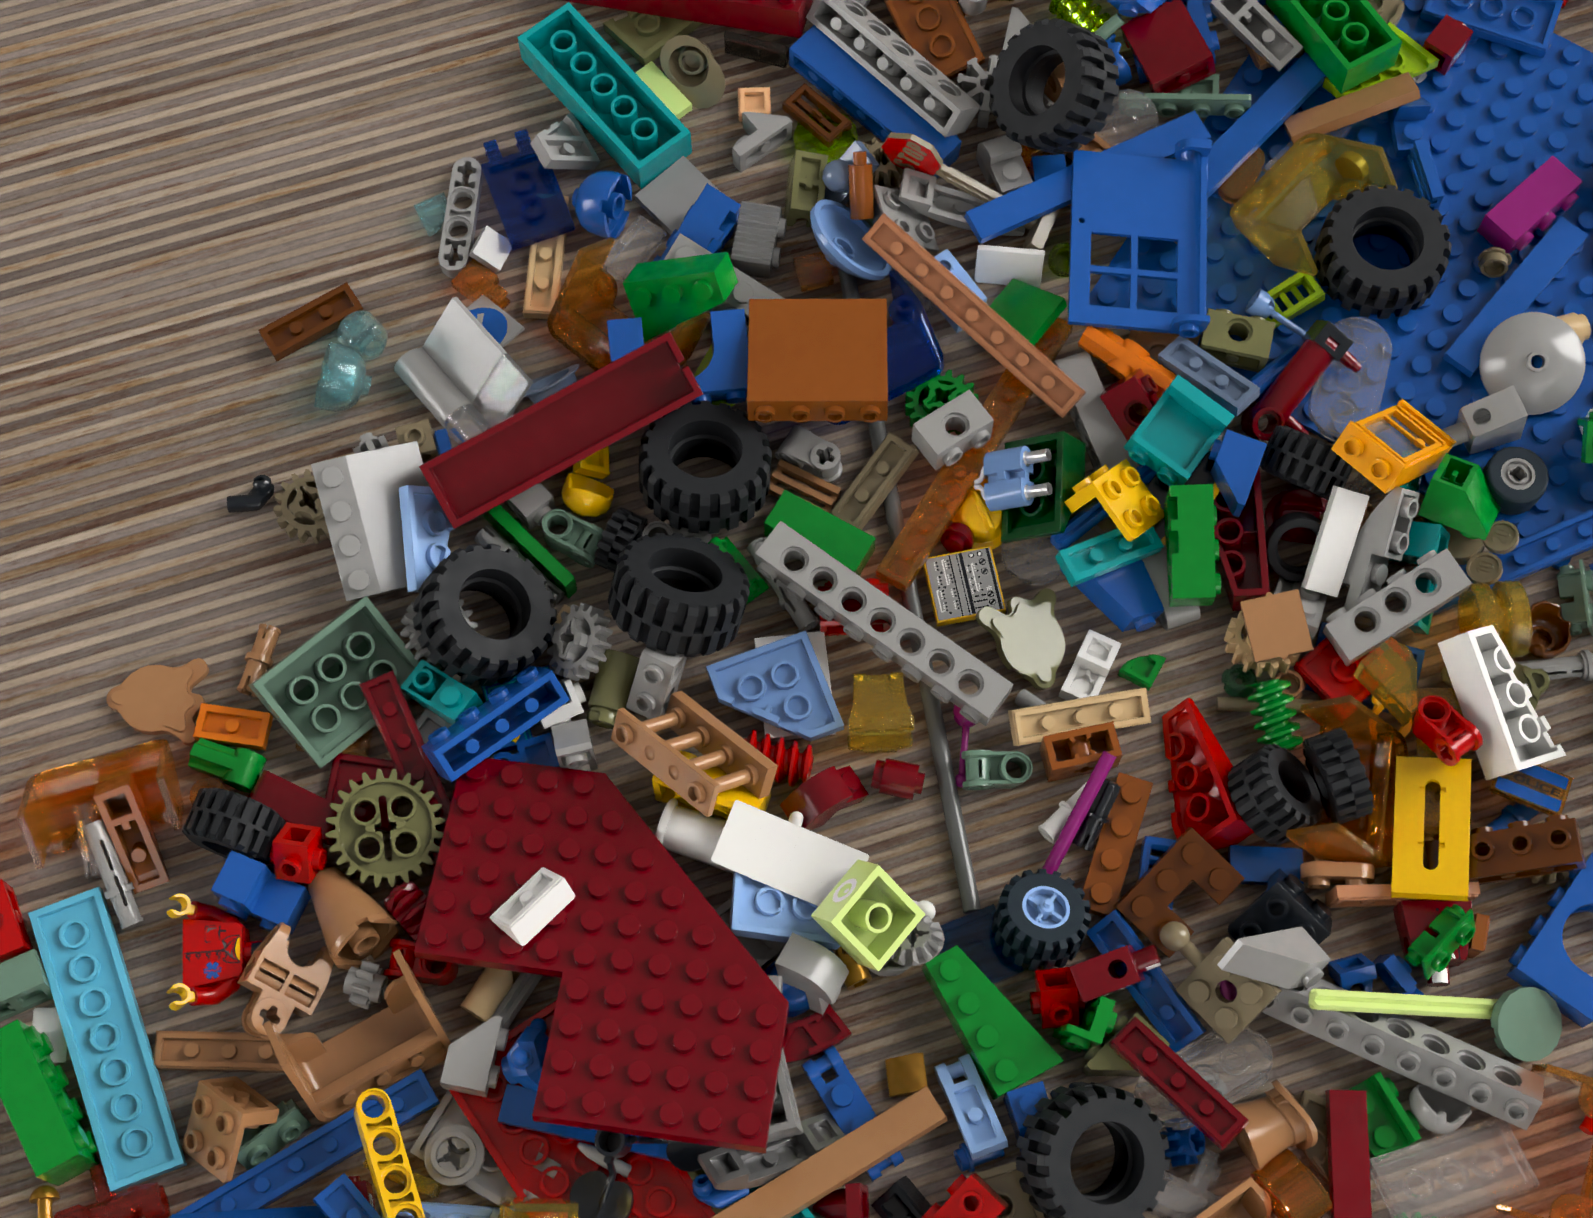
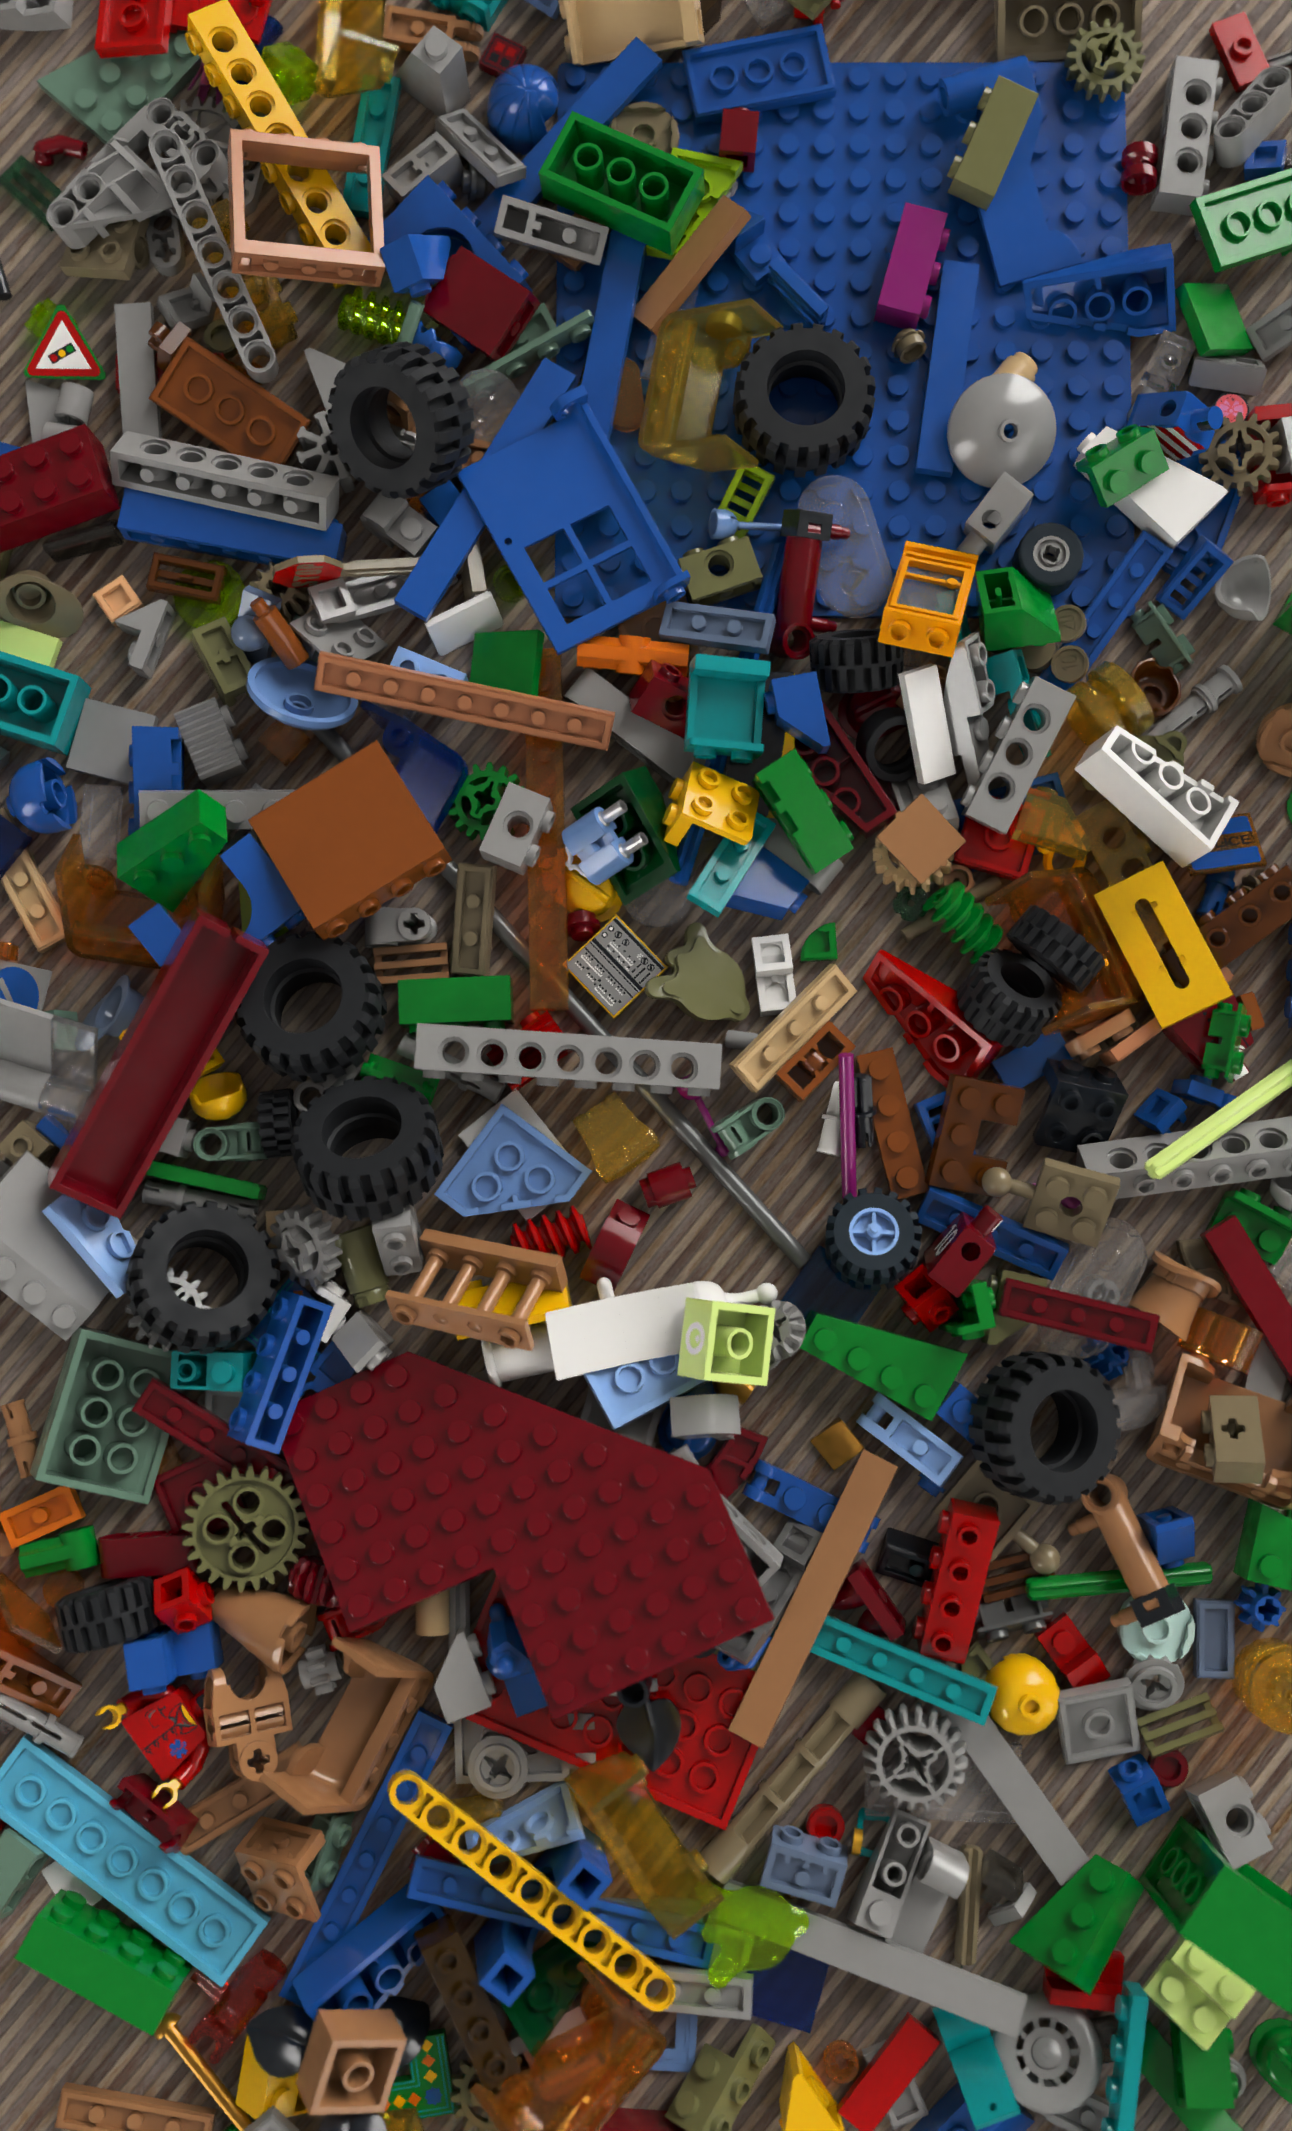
camera: 30 degrees left, 15 degrees up
(160, 1024) = (169, 1825): none -> dark red hinge
(533, 906) = (428, 1525): white slope -> none
(1278, 958) = (1104, 1154): light grey slope -> none
(1445, 730) = (1129, 848): red piece -> none

